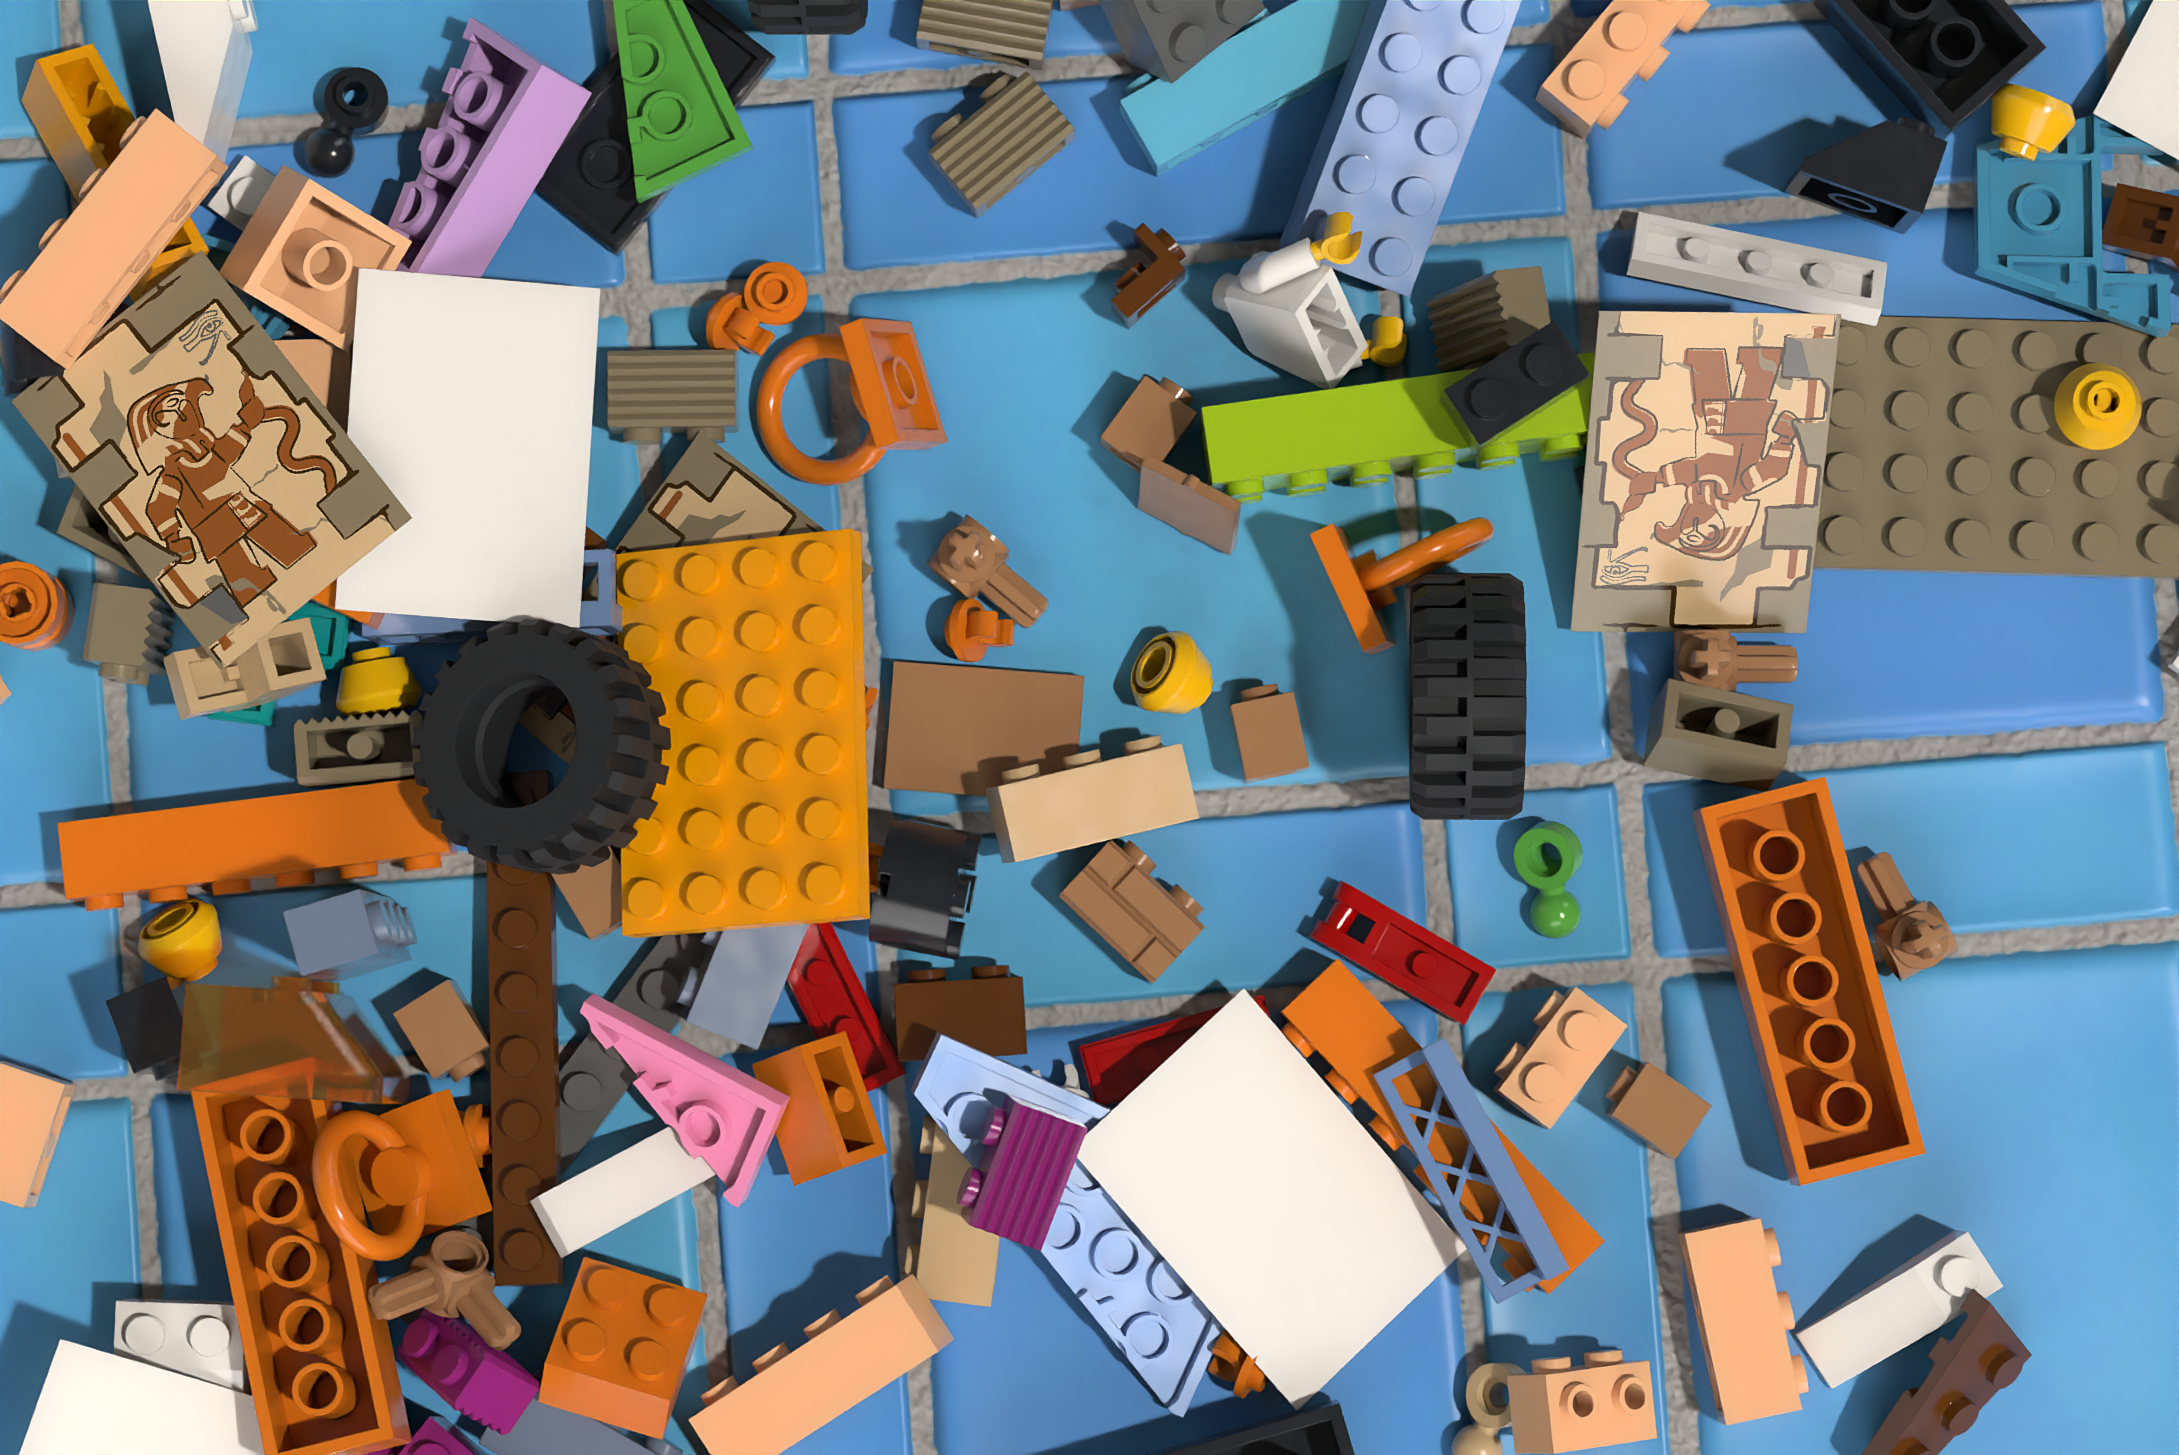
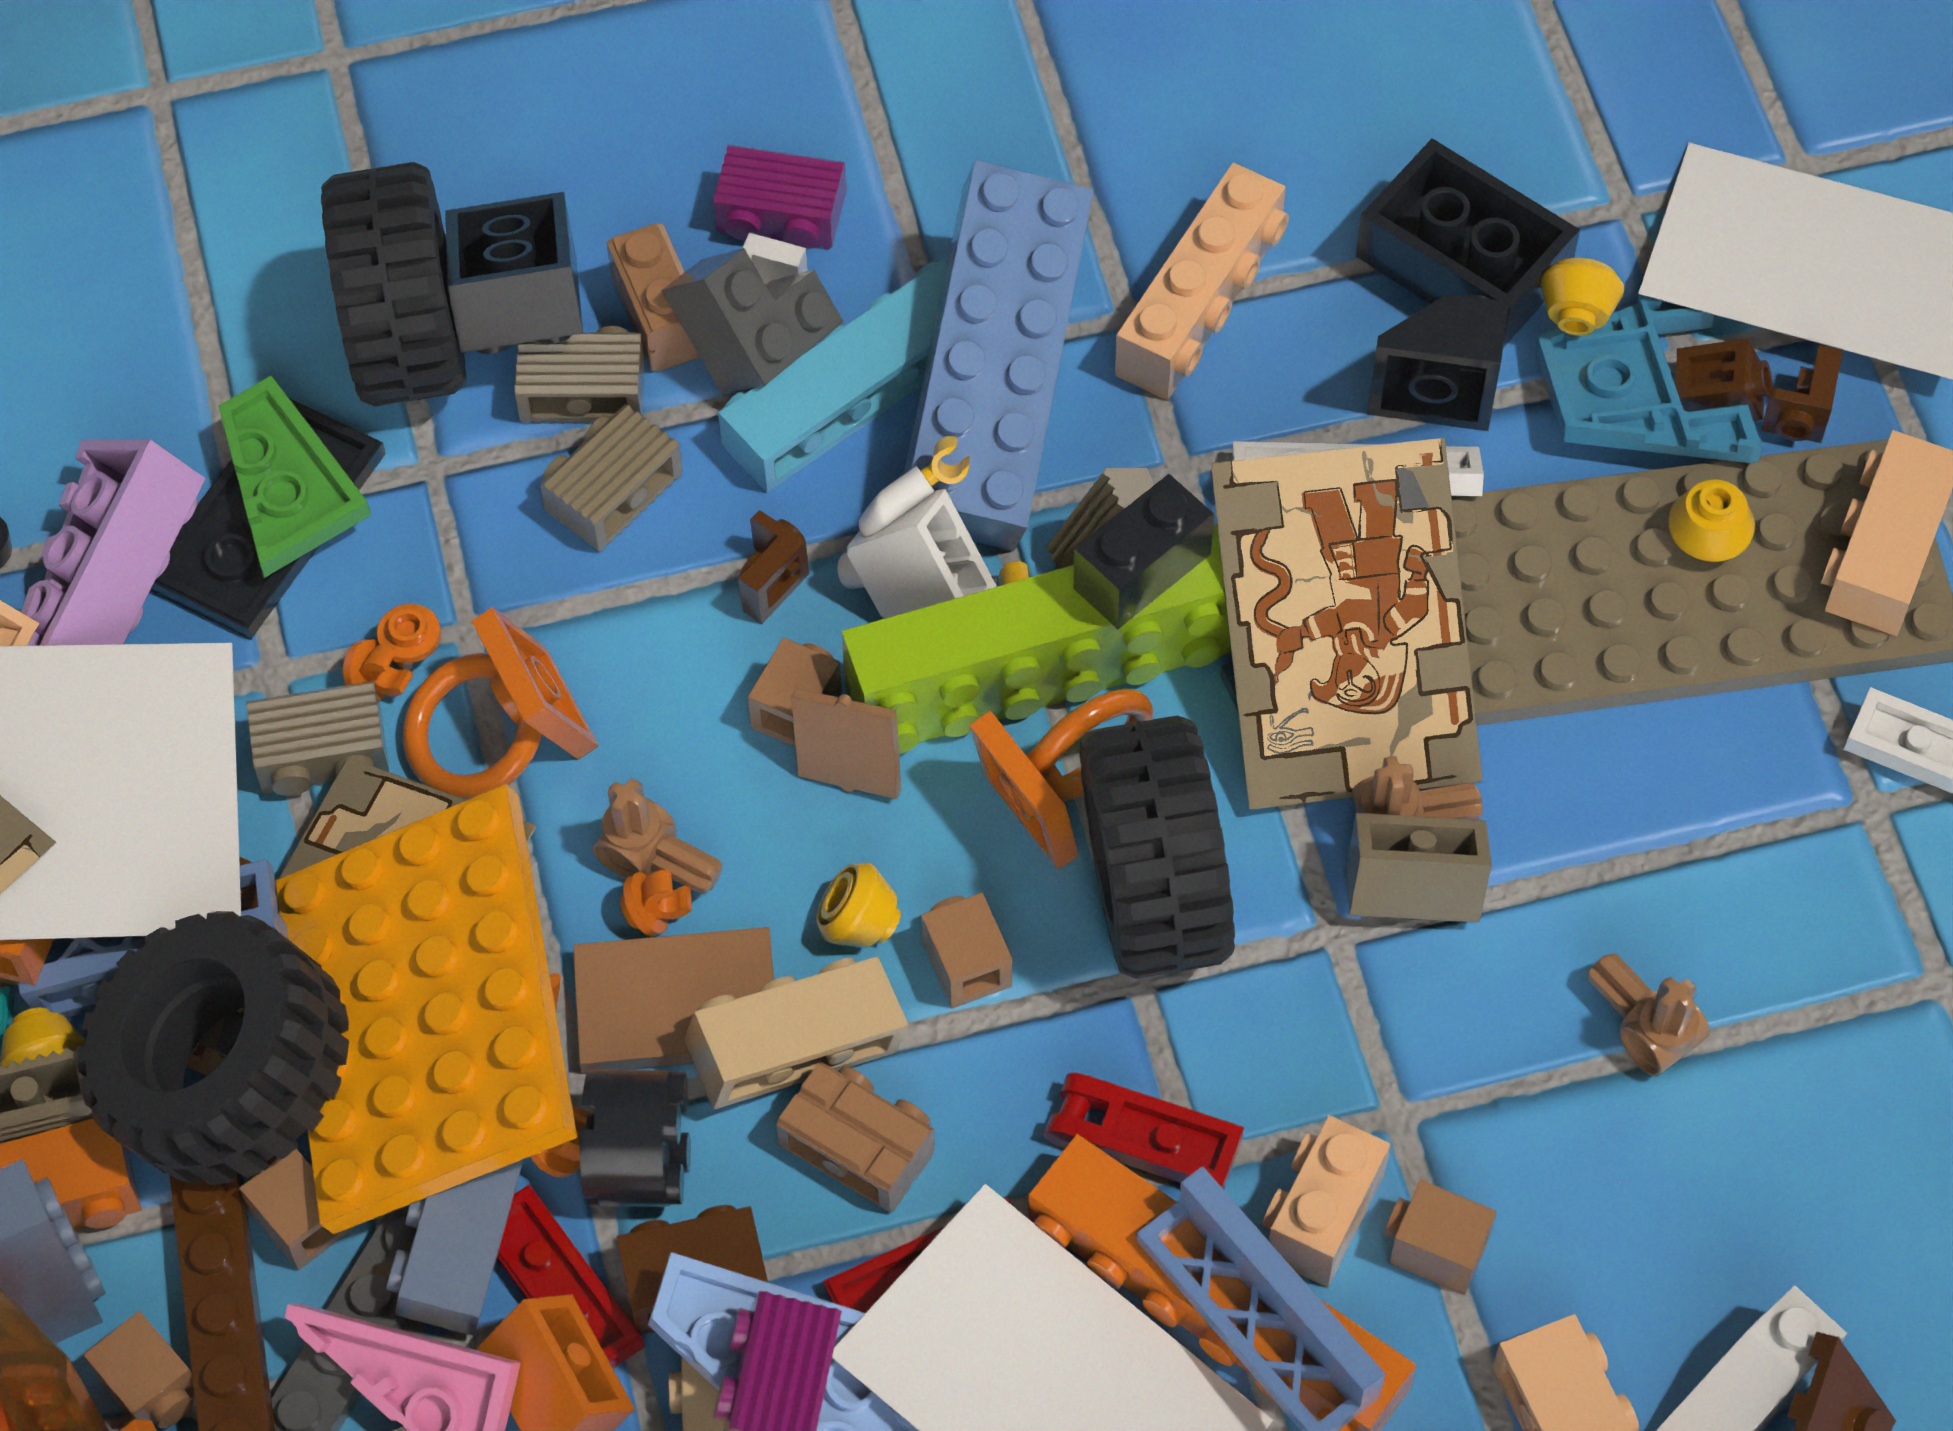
camera: 10 degrees left, 25 degrees down
(1554, 910) = (1291, 1070): bright green plate -> none
(1808, 982) = (1567, 1083): orange brick -> none

